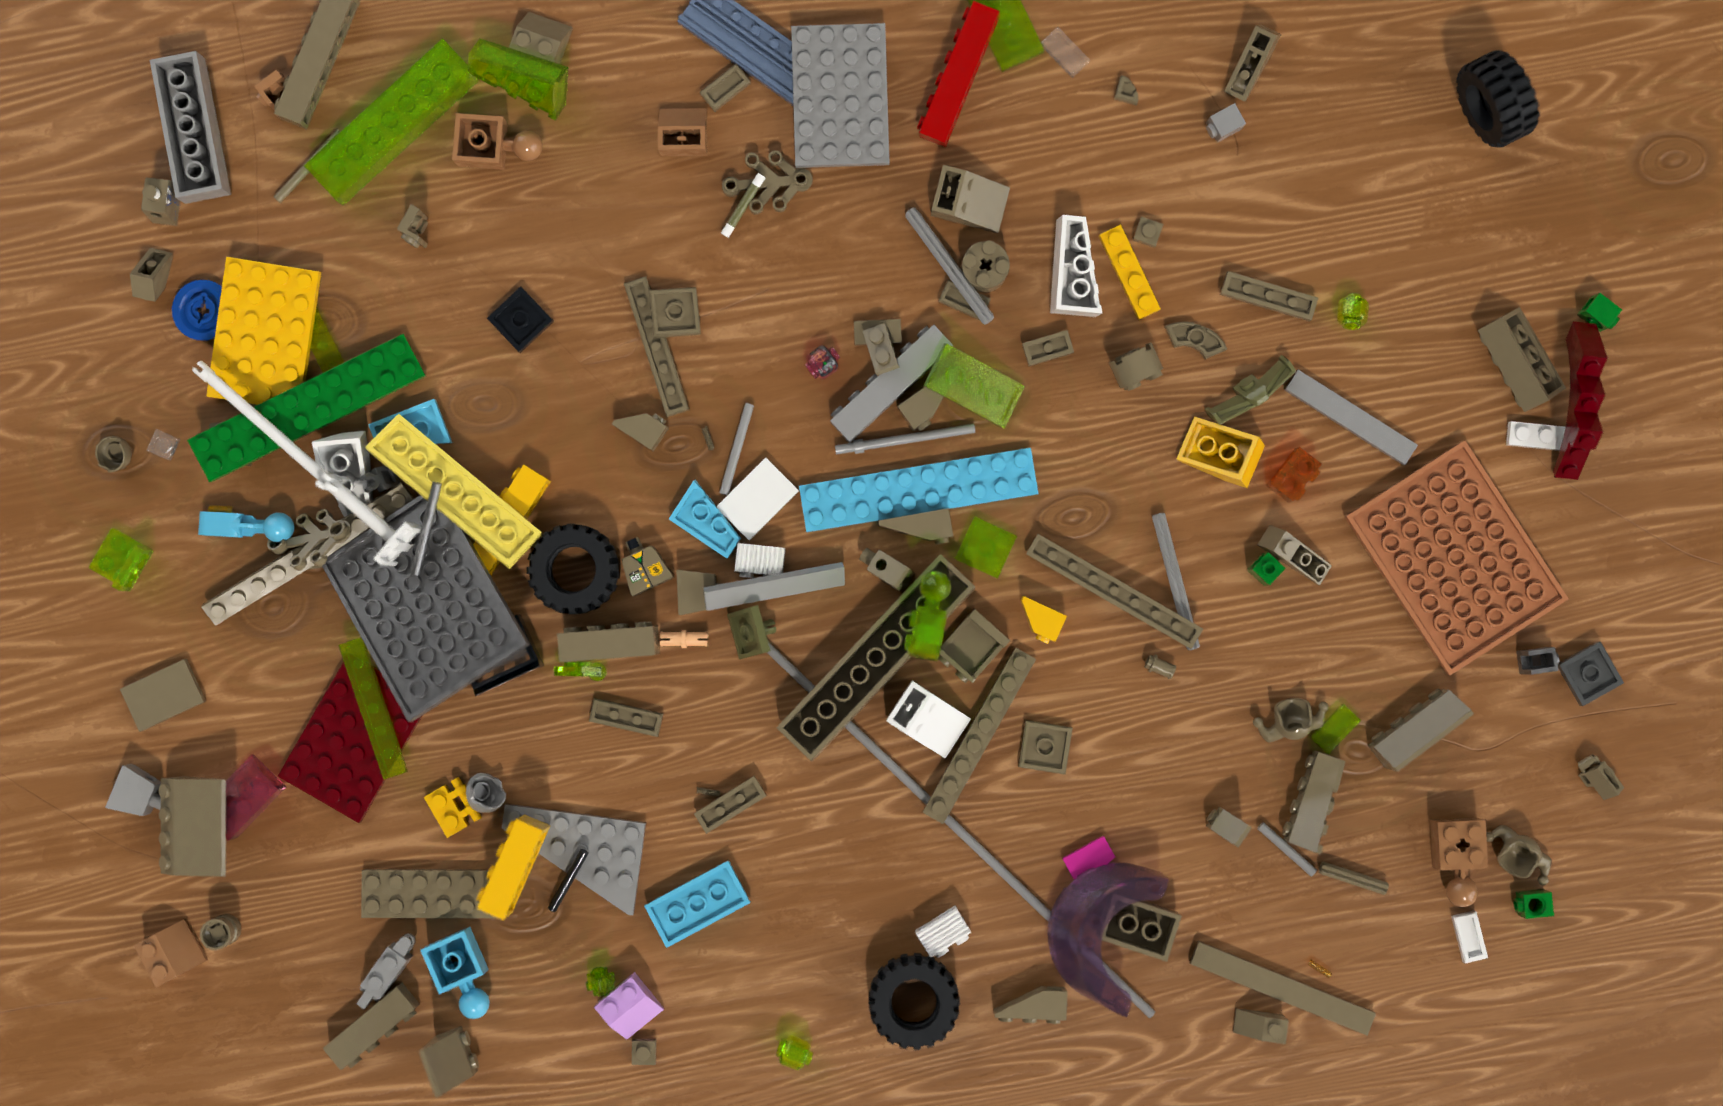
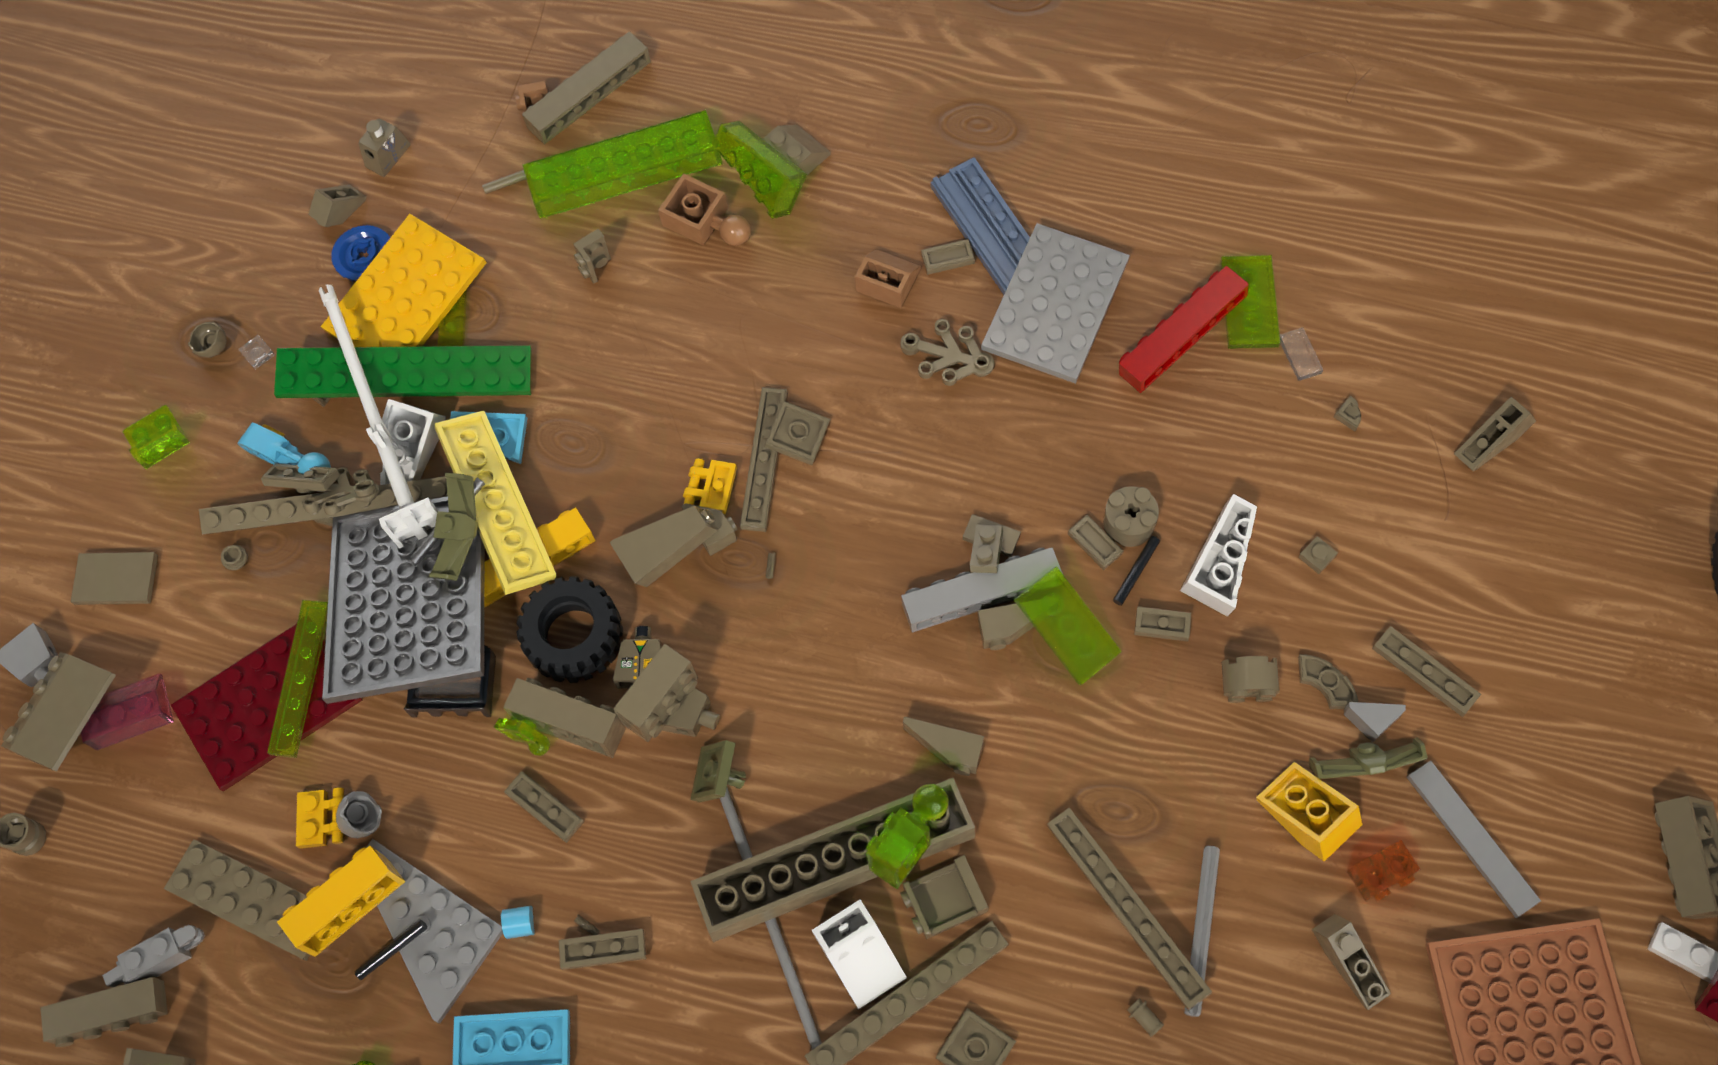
camera: 25 degrees right, 20 degrees down
(190, 127) = (442, 99): light grey brick -> none
(255, 632) = (234, 557): none -> dark tan plate
(260, 546) = (288, 476): none -> dark tan tile
(380, 478) = (433, 462): dark grey plate -> none
(438, 532) = (455, 527): none -> olive plate
(449, 974) = (211, 991): medium azure brick -> none
(520, 319) = (646, 380): black tile -> none
(611, 466) = (662, 544): none -> dark tan slope
(630, 388) = (717, 486): none -> yellow plate
(653, 813) = (517, 922): none -> medium azure brick
(677, 595) = (656, 693): none -> dark tan brick
(684, 639) = (644, 752): light nougat pin -> none
(704, 521) = (725, 642): medium azure wing -> none
(736, 449) = (793, 588): light grey bar -> none
(743, 204) = (913, 363): olive bar -> none
(757, 499) = (790, 645): white tile -> none
(759, 560) = (762, 706): white brick -> none
(774, 586) = (763, 735): light grey tile -> none
(822, 362) = (921, 539): clear pink head -> none
(859, 445) = (921, 637): light grey bar -> none
(894, 574) = (890, 771): dark tan torso -> none
(918, 489) = (999, 716): medium azure plate -> none
(949, 265) = (1094, 502): light grey axle -> none
(969, 199) = (1142, 446): dark tan slope -> none
(985, 547) = (1006, 799): clear neon green plate -> none
(1008, 310) = (1136, 570): none -> black bar
(1043, 620) = (1035, 904): yellow slope -> none
(1129, 272) = (1282, 587): yellow plate -> none
(1225, 123) = (1443, 481): light grey brick -> none
(1243, 355) = (1373, 718): none -> light grey slope
(1266, 569) = (1311, 960): green brick -> none
(1352, 311) = (1515, 725): clear neon green head -> none

